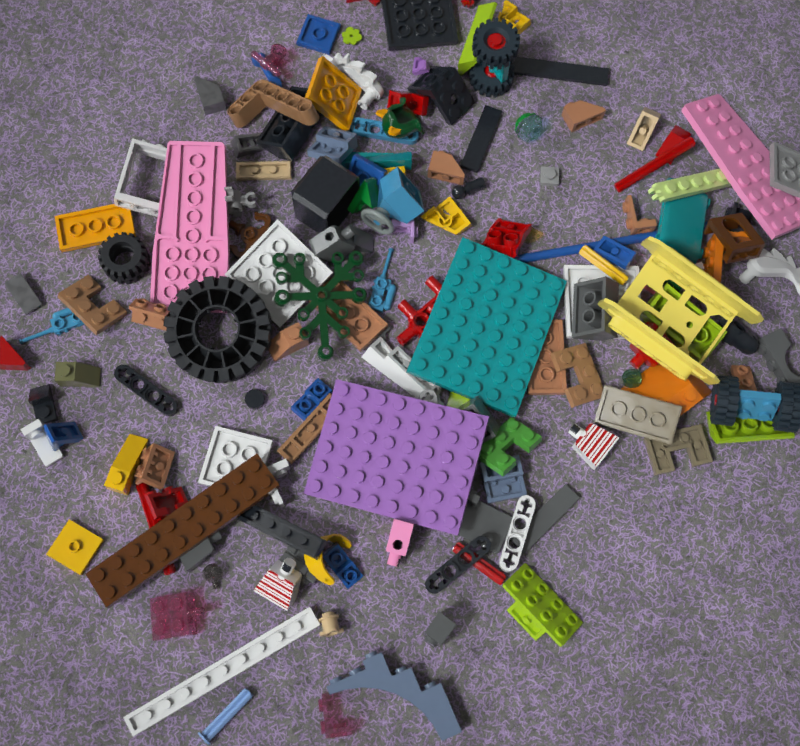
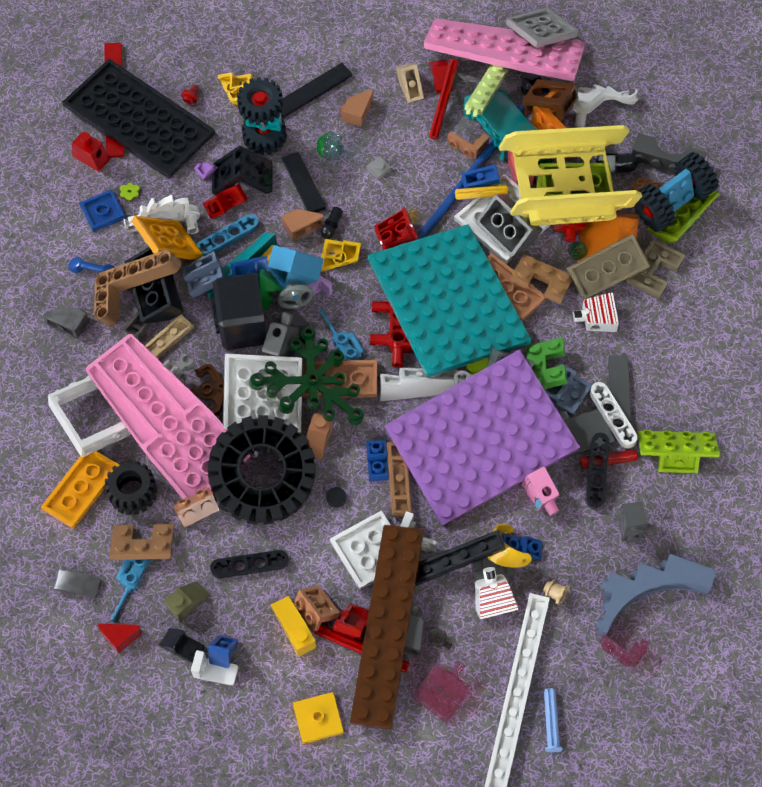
camera: 40 degrees left, 10 degrees down
(273, 60) = (89, 254): clear pink piece -> none
(399, 120) = (236, 218): dark green hair -> none
(467, 59) = (228, 114): lime slope -> none

